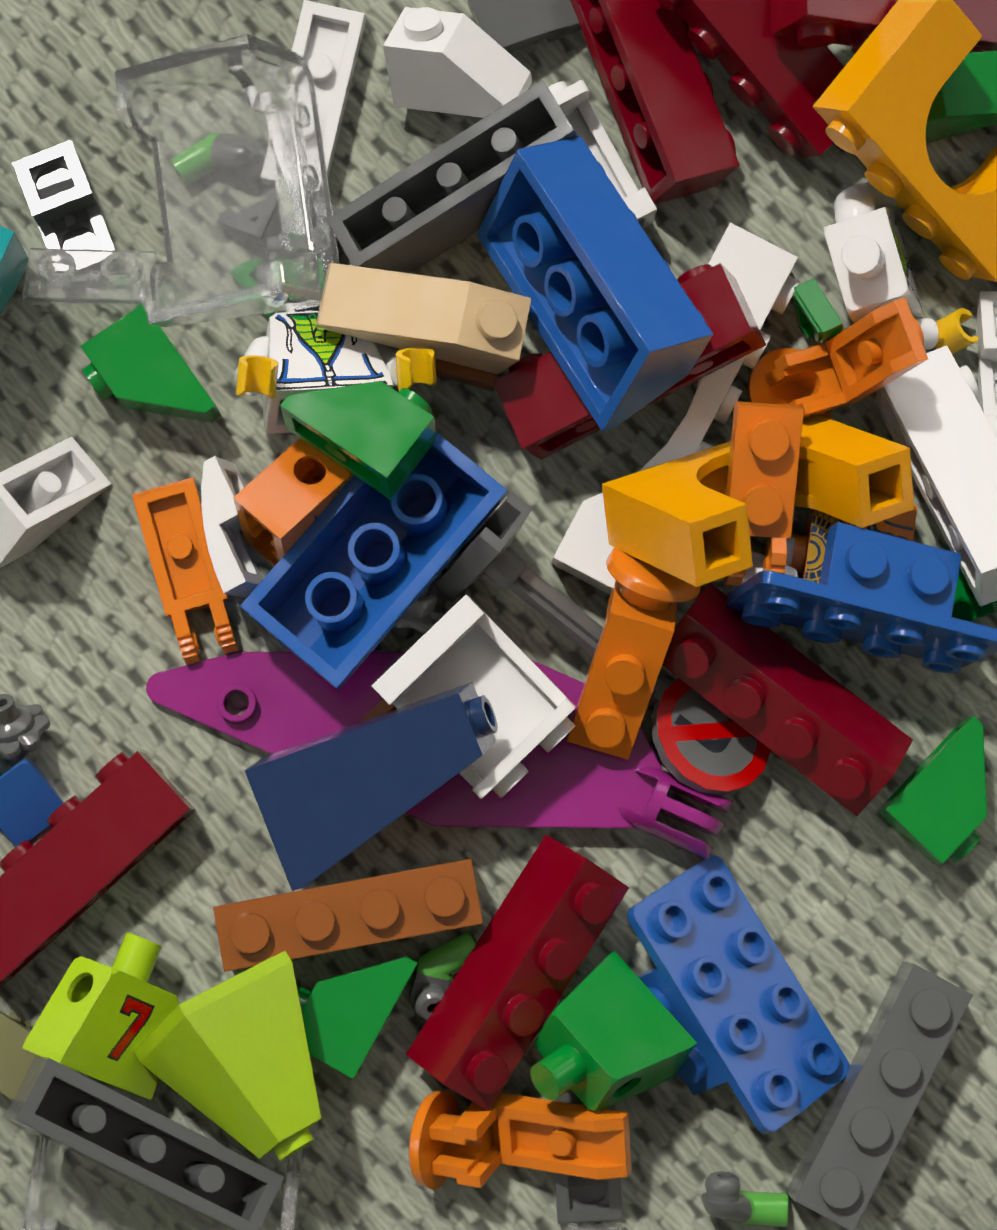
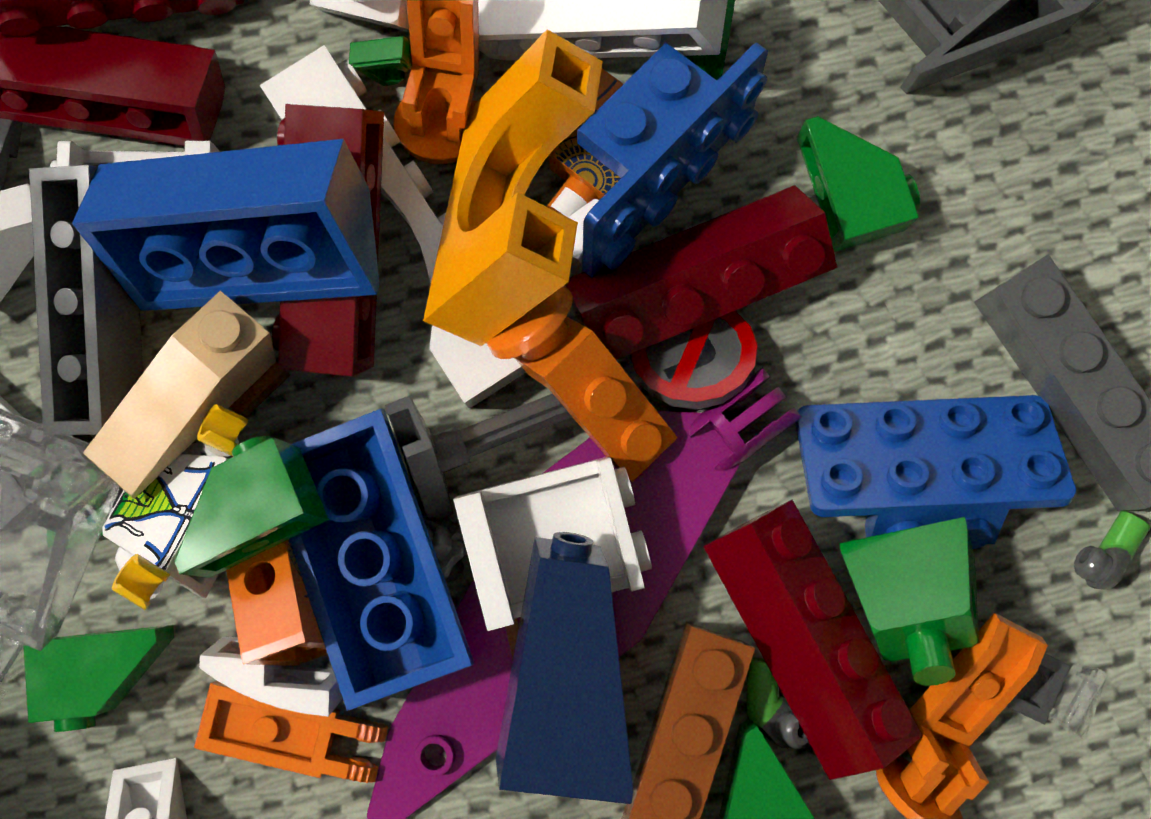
camera: 55 degrees left, 0 degrees up
(765, 474) = (492, 169): orange hinge -> none

